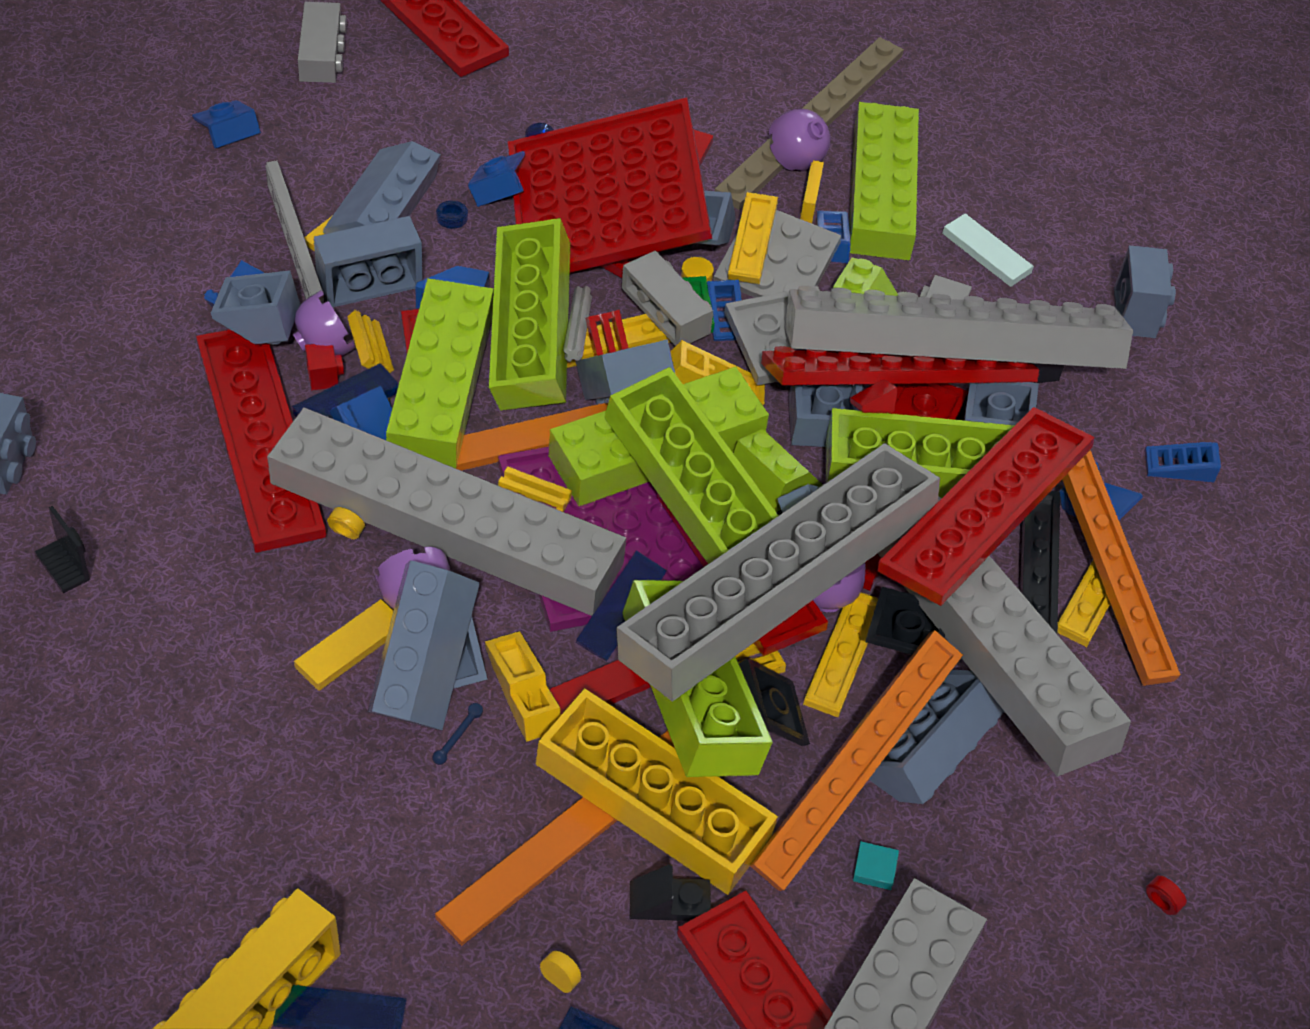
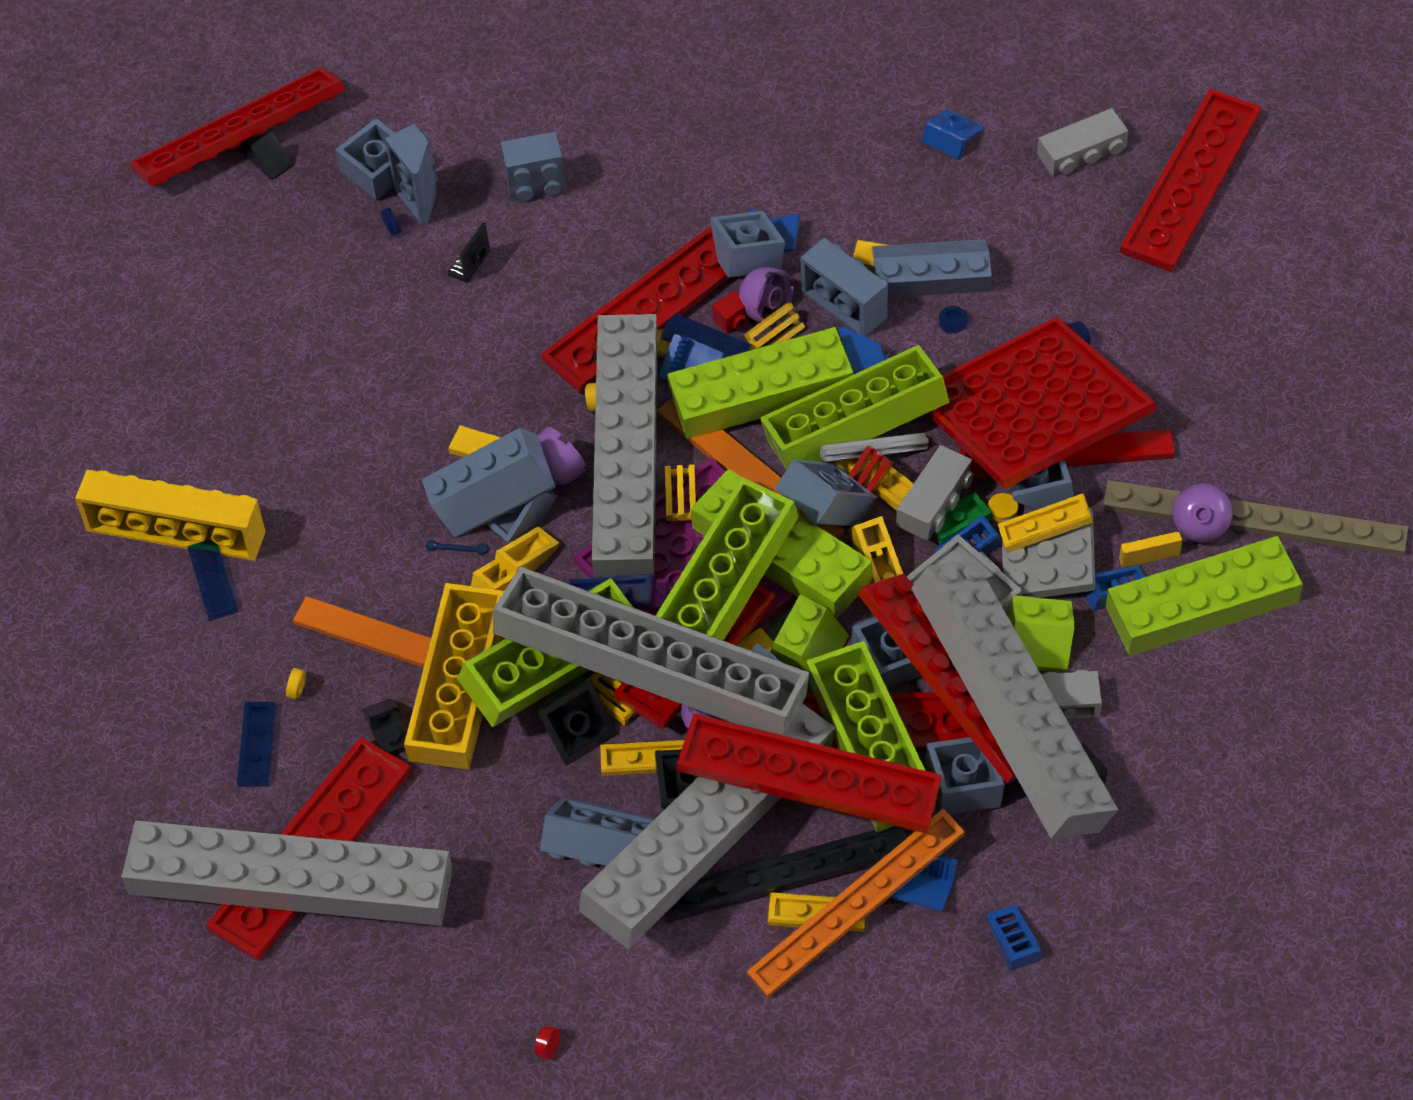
camera: 75 degrees right, 5 degrees up
(292, 230) = (864, 222): light grey tile -> none
(496, 179) = (995, 324): blue piece -> none
(856, 761) = (548, 788): orange plate -> none
(875, 865) = (479, 844): teal tile -> none
(876, 398) = (891, 666): red slope -> none
(988, 250) = (1180, 708): light aqua tile -> none
(1145, 289) = (1186, 836): sand blue brick -> none

